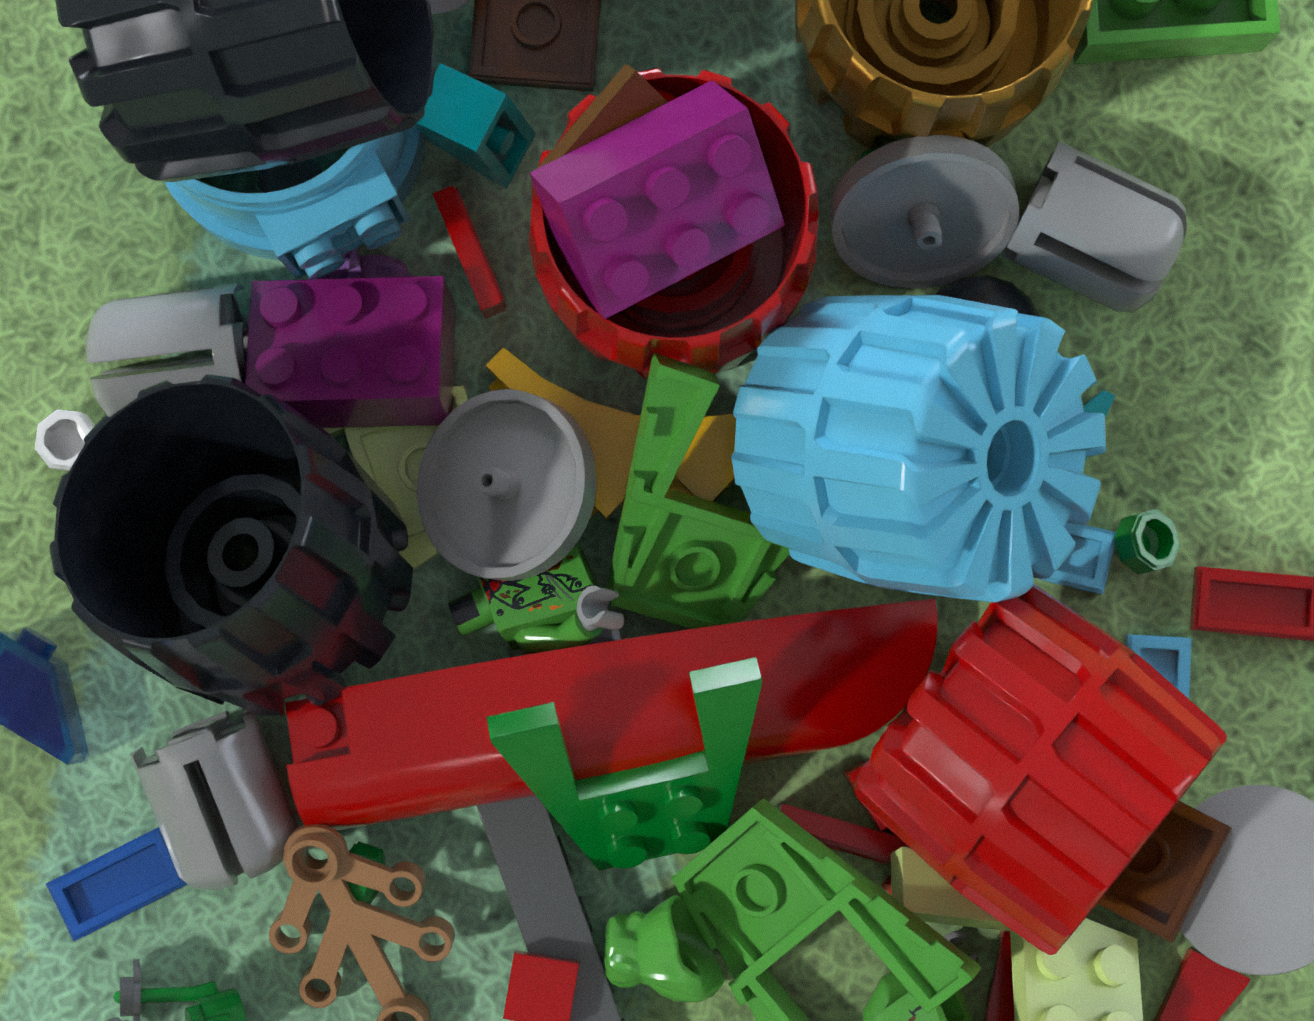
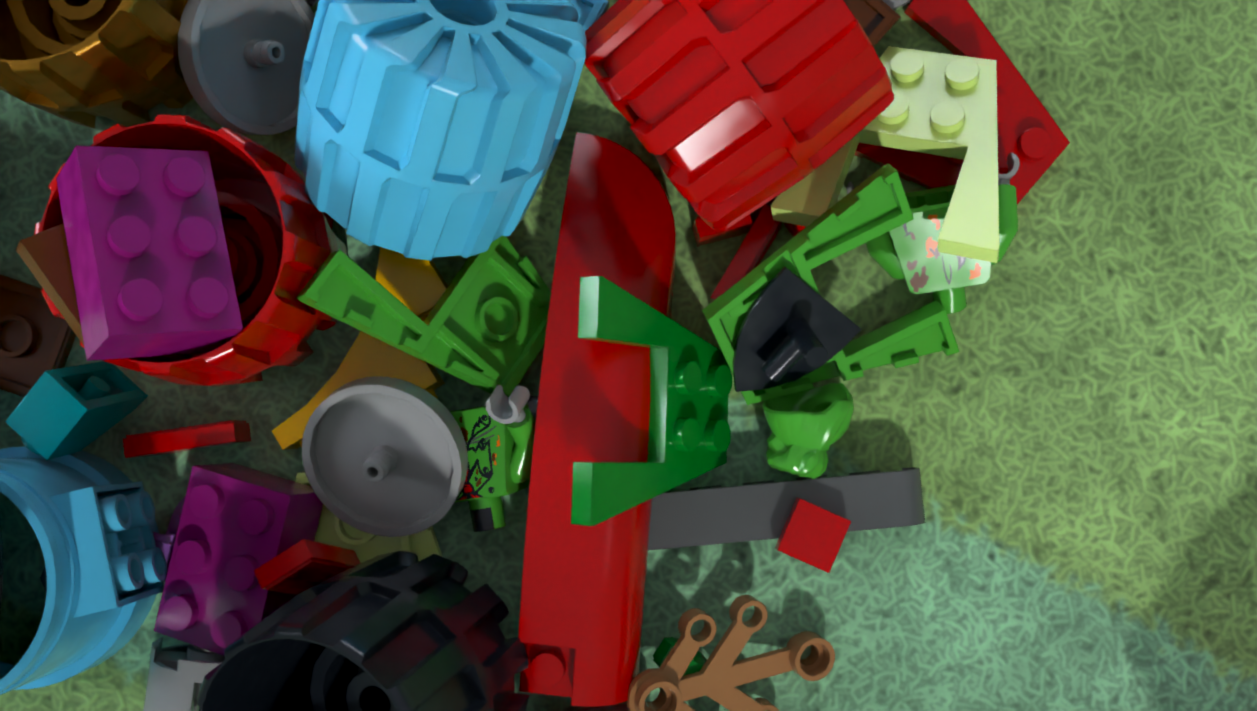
camera: 80 degrees left, 0 degrees up
(364, 434) = (304, 566): none -> red tile
(761, 904) = (787, 334): none -> black shield

